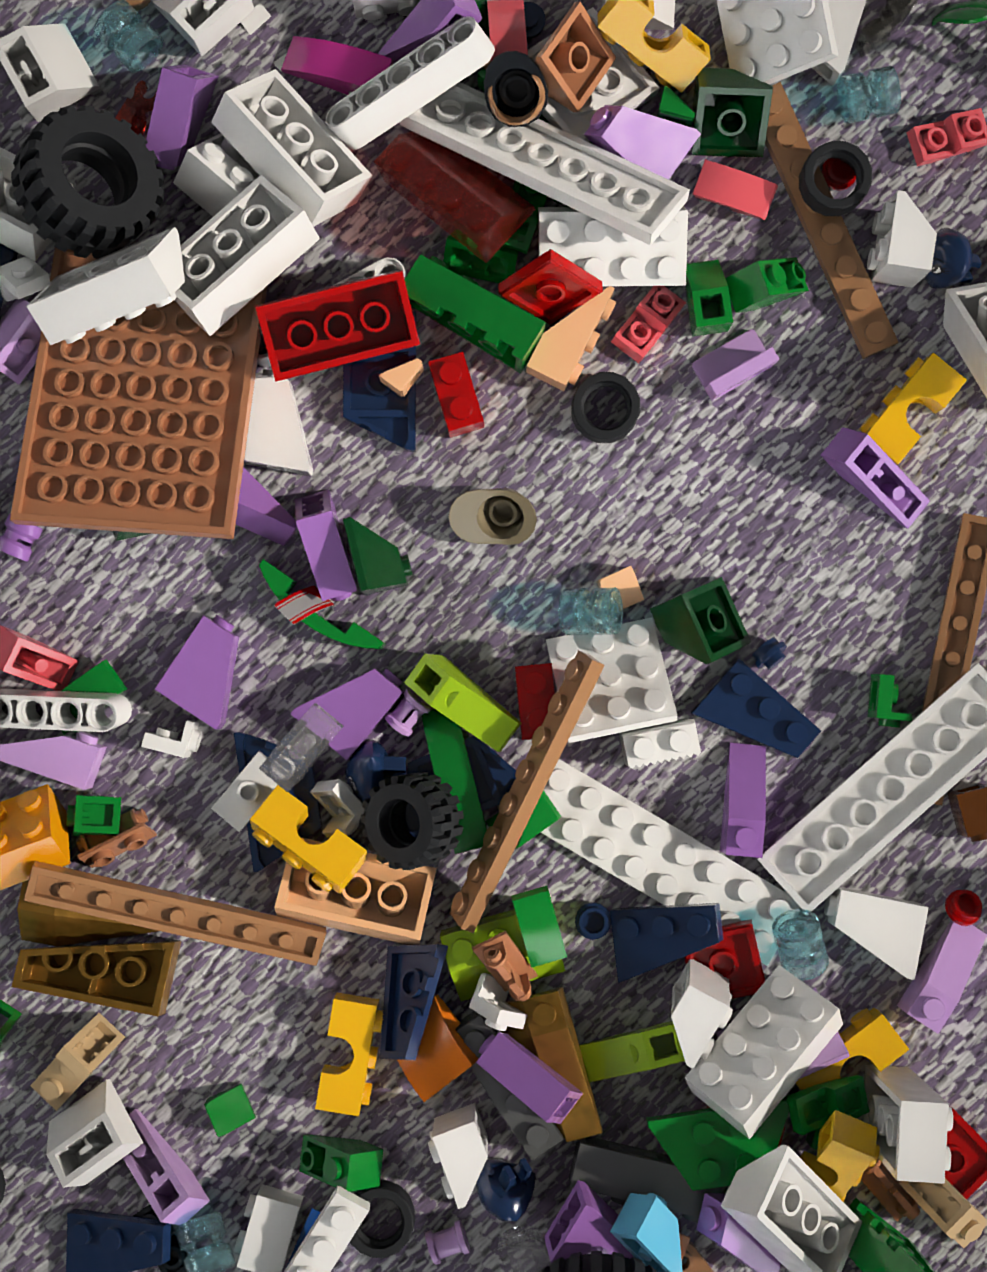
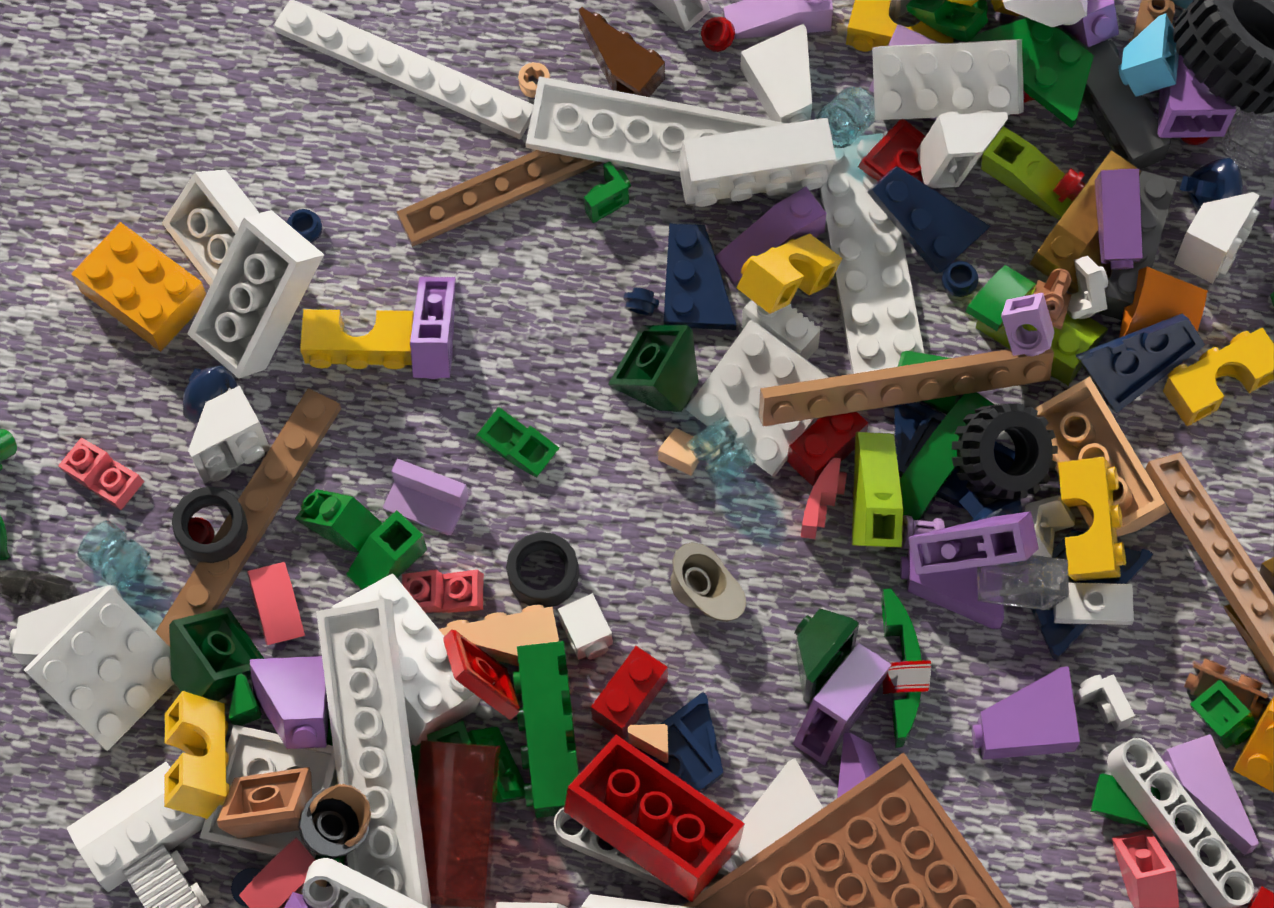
camera: 125 degrees left, 20 degrees down
(352, 736) = (975, 544): none -> medium lavender slope
(492, 921) = (1032, 311): none -> lavender brick
(500, 671) = (823, 492): none -> coral slope
(532, 403) = (586, 627): none -> white brick
(595, 1070) = (1069, 185): none -> red plate
(697, 757) = (778, 273): none -> yellow arch
(726, 469) = (516, 443): none -> green slope
(811, 831) = (756, 162): none -> white brick

